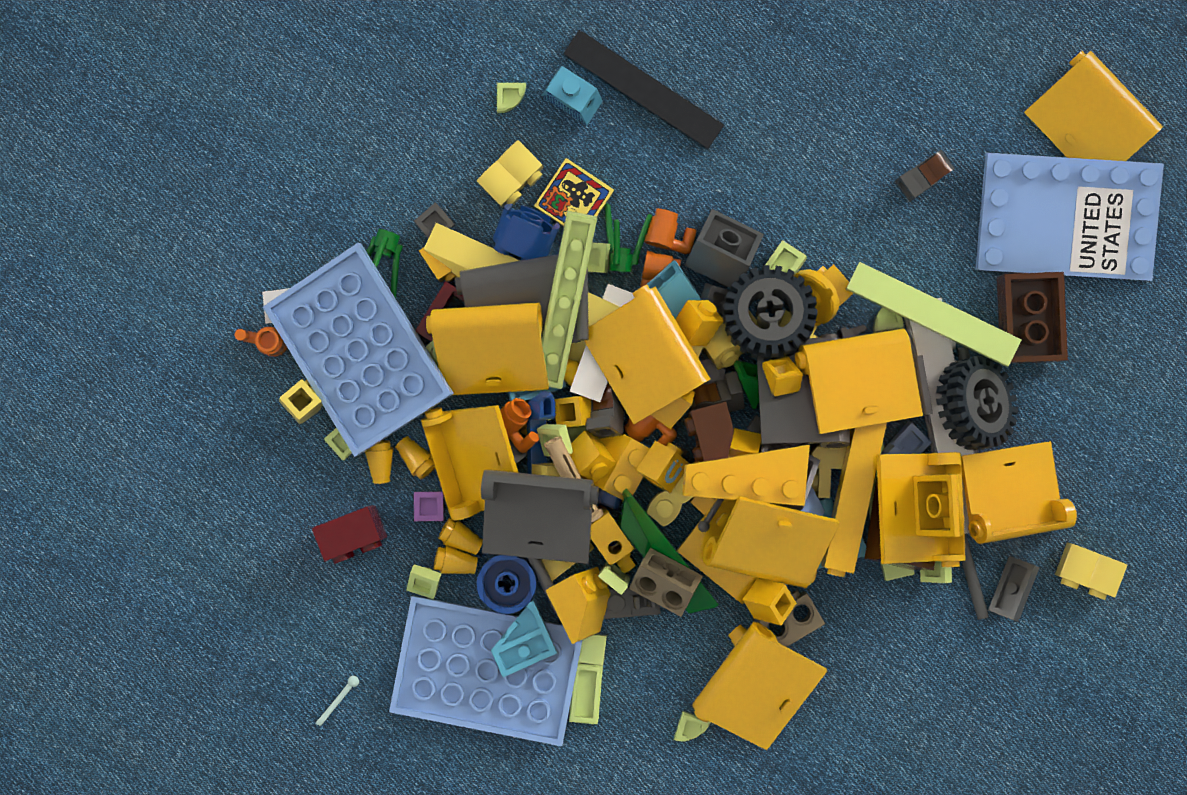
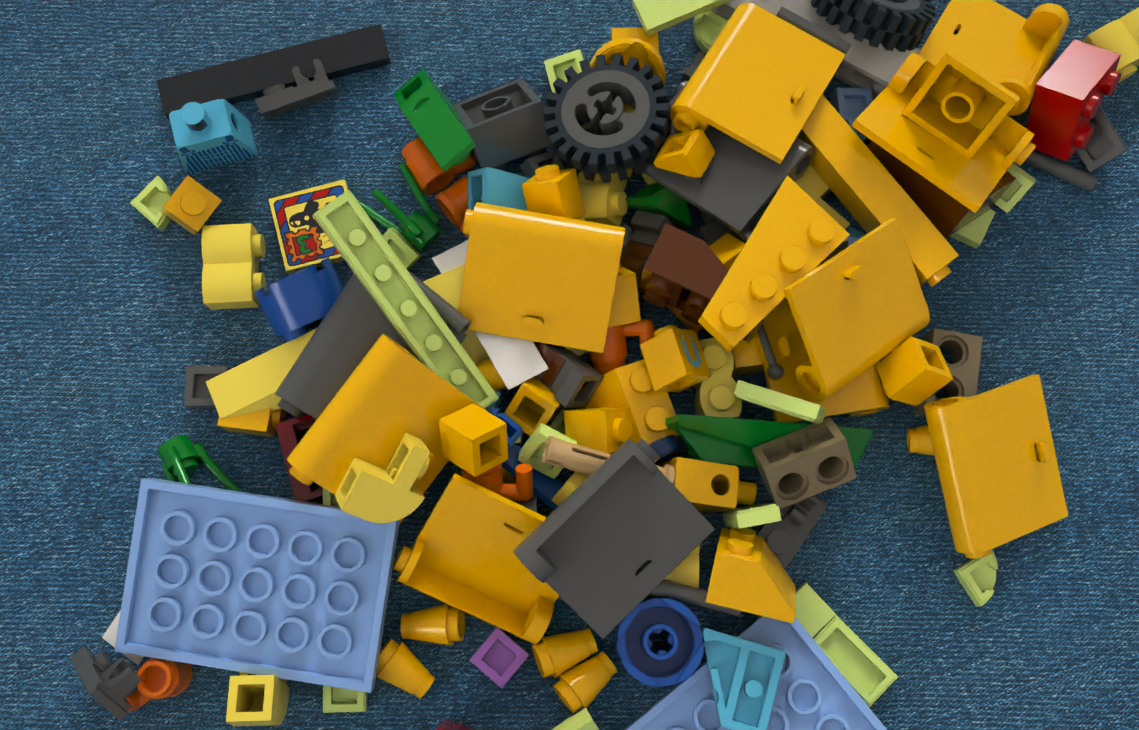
camera: 55 degrees left, 10 degrees down
(246, 319) = (106, 680): none -> dark grey plate
(460, 378) = (389, 493): none -> light yellow brick
(523, 121) = (190, 205): none -> yellow brick
(524, 398) = (473, 439): none -> yellow brick
(628, 111) = (282, 100): none -> dark grey plate
(686, 542) = (780, 402): none -> yellowish green tile
(687, 215) = (435, 120): none -> green slope
(1014, 561) = (1070, 98): none -> red brick

